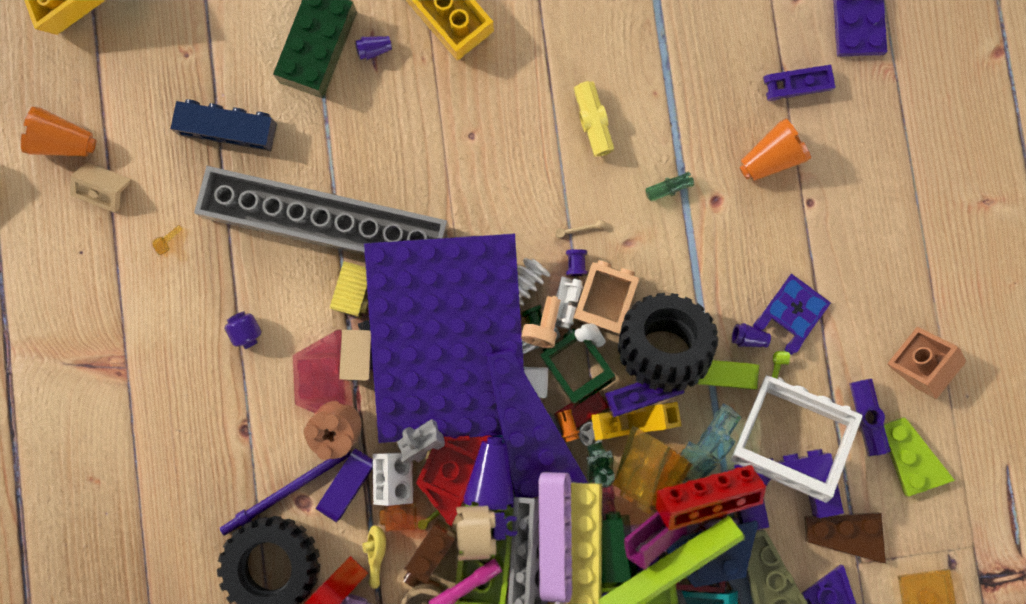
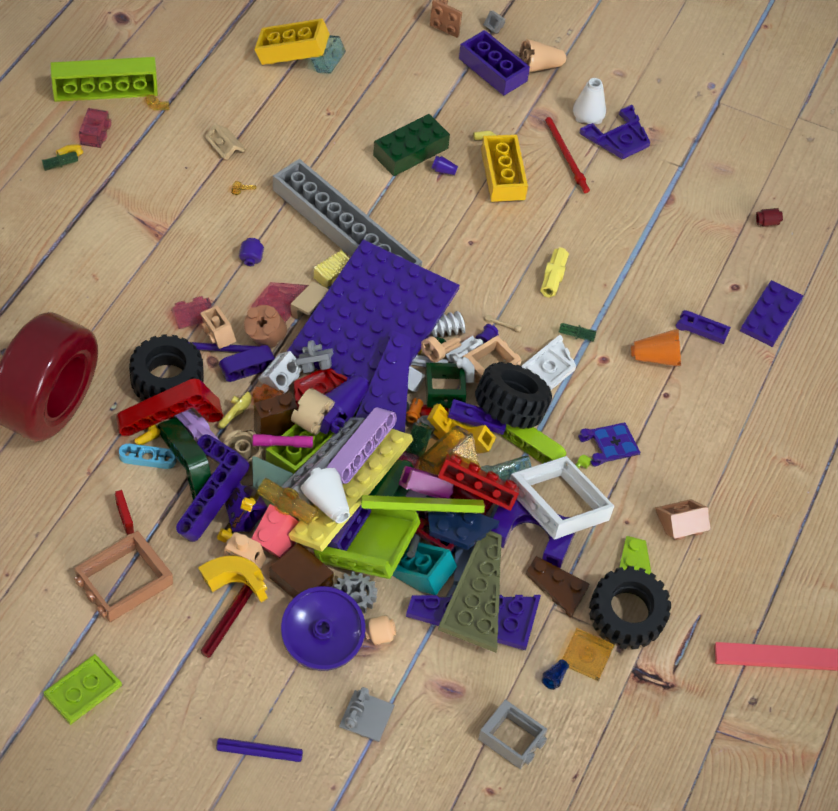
camera: 25 degrees right, 30 degrees down
(54, 135) = (221, 102): orange cone -> none
(223, 125) = (324, 153): dark blue brick -> none
(237, 458) = (189, 313): none -> clear pink bracket
(282, 469) = (217, 327): none -> light nougat brick
(667, 257) = (552, 363): none -> white wing
(749, 336) = (571, 437): dark purple cone -> none
(873, 433) = (618, 532): dark purple piece -> none
(974, 544) = (641, 585): none -> black tyre

